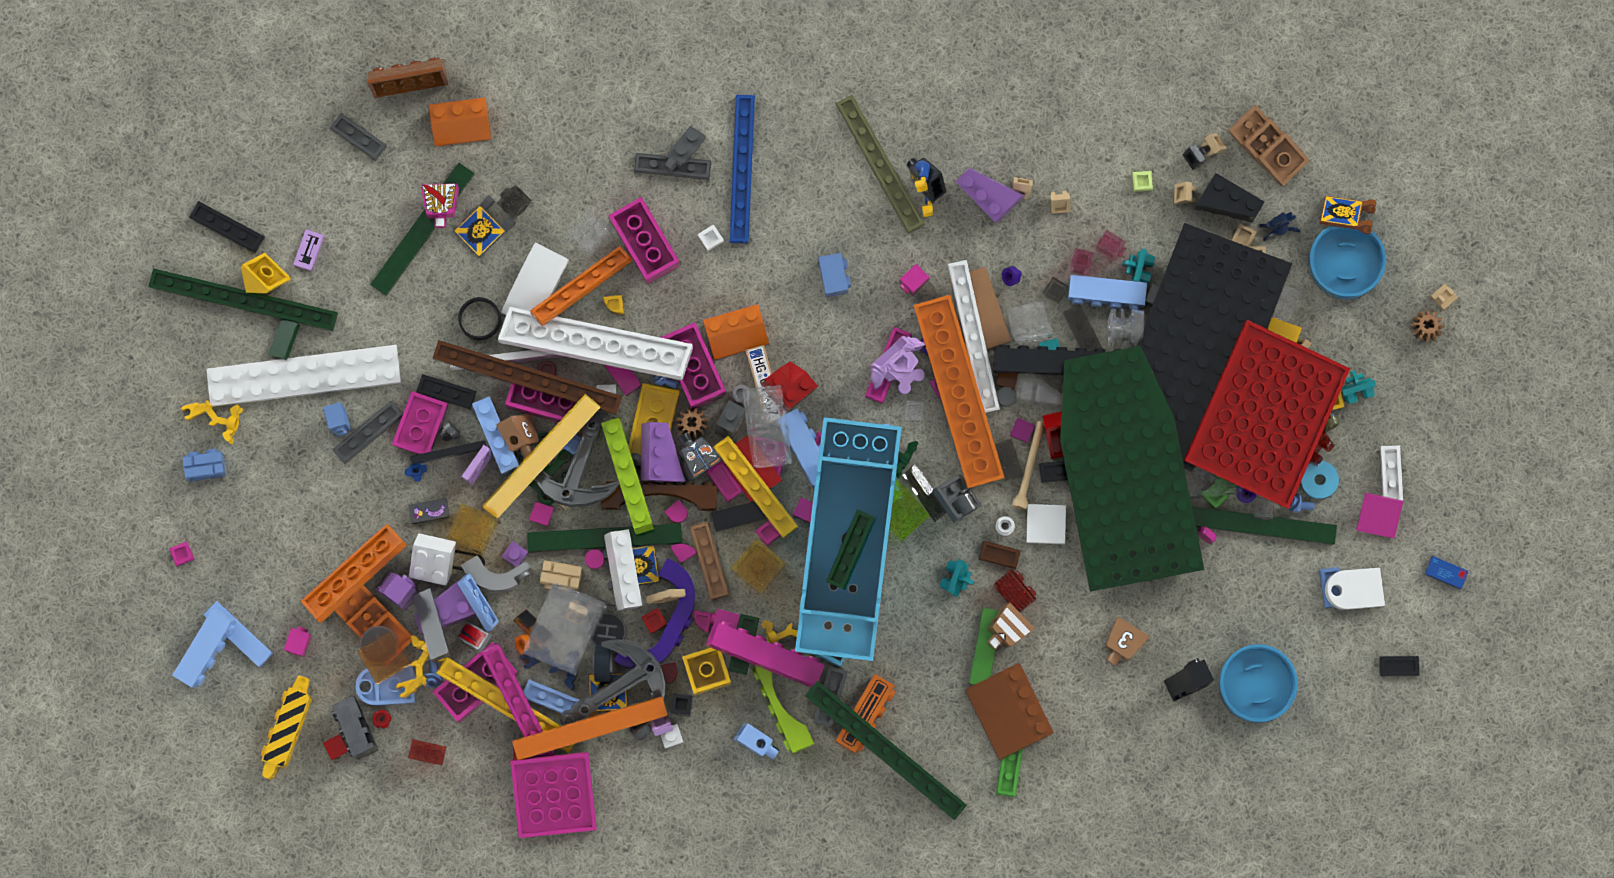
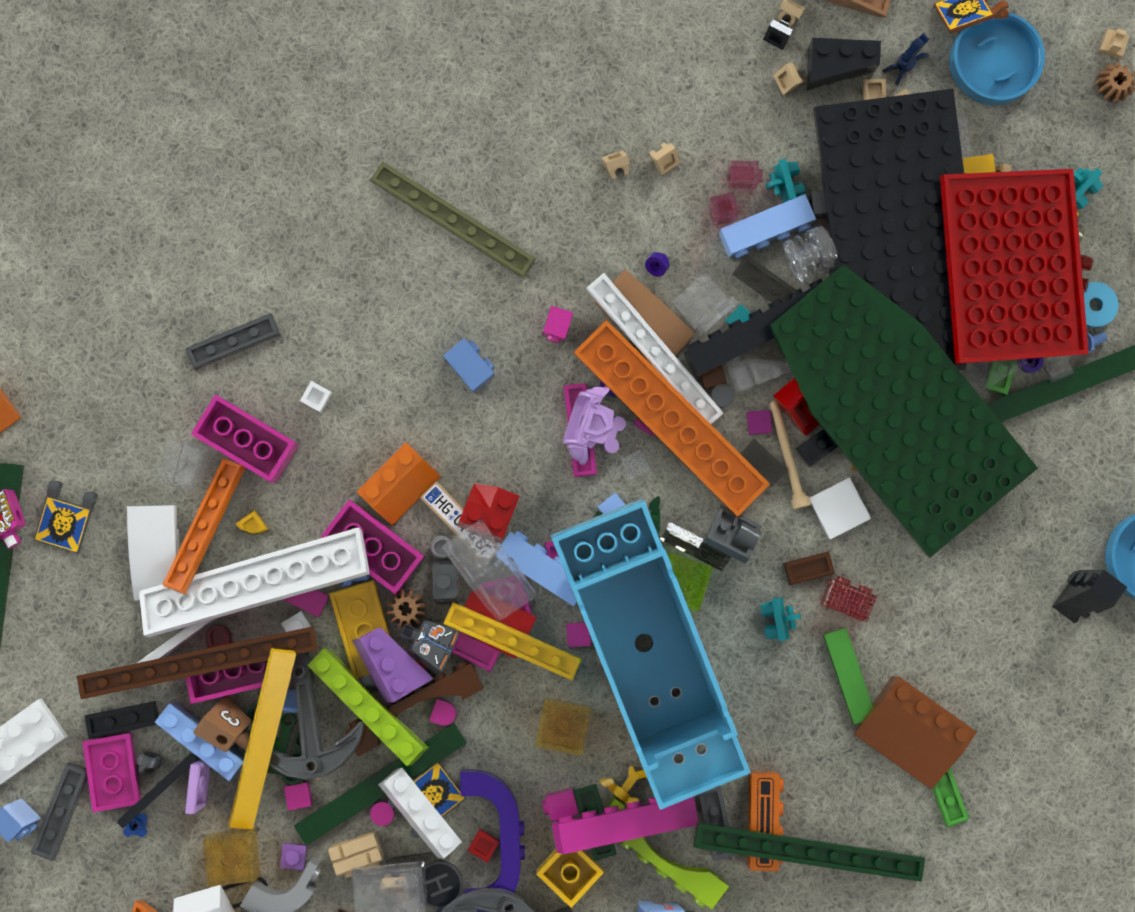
camera: 35 degrees left, 5 degrees up
(429, 511) = (174, 860): dark grey tile -> none
(476, 300) = (90, 625): black tyre -> none
(514, 201) = (81, 473): clear smoke brick -> none
(665, 596) = (482, 815): tan tile -> none
(669, 672) = (529, 891): dark red tile -> none
(683, 552) = (473, 752): dark pink tile -> none
(684, 149) = (234, 316): dark grey hinge -> none
(702, 620) = (534, 814): dark pink tile -> none
(709, 561) = (506, 746): medium nougat tile -> none
(737, 516) = (508, 682): black tile -> none
(742, 169) = (309, 304): blue tile -> none
(767, 533) = (552, 682): dark pink tile -> none
(851, 549) = (663, 668): dark green plate -> none
(928, 181) = (514, 209): torso -> none
(989, 194) = (586, 188): medium lavender wedge -> none
(1008, 627) = (864, 643): medium nougat torso -> none
(1009, 521) = (804, 531): white plate -> none
(1055, 290) = (711, 253): clear smoke tile -> none
(1124, 641) = (991, 589): medium nougat torso -> none
(1142, 181) = (737, 89): yellowish green tile -> none
(1206, 534) = (1014, 427): dark pink tile -> none

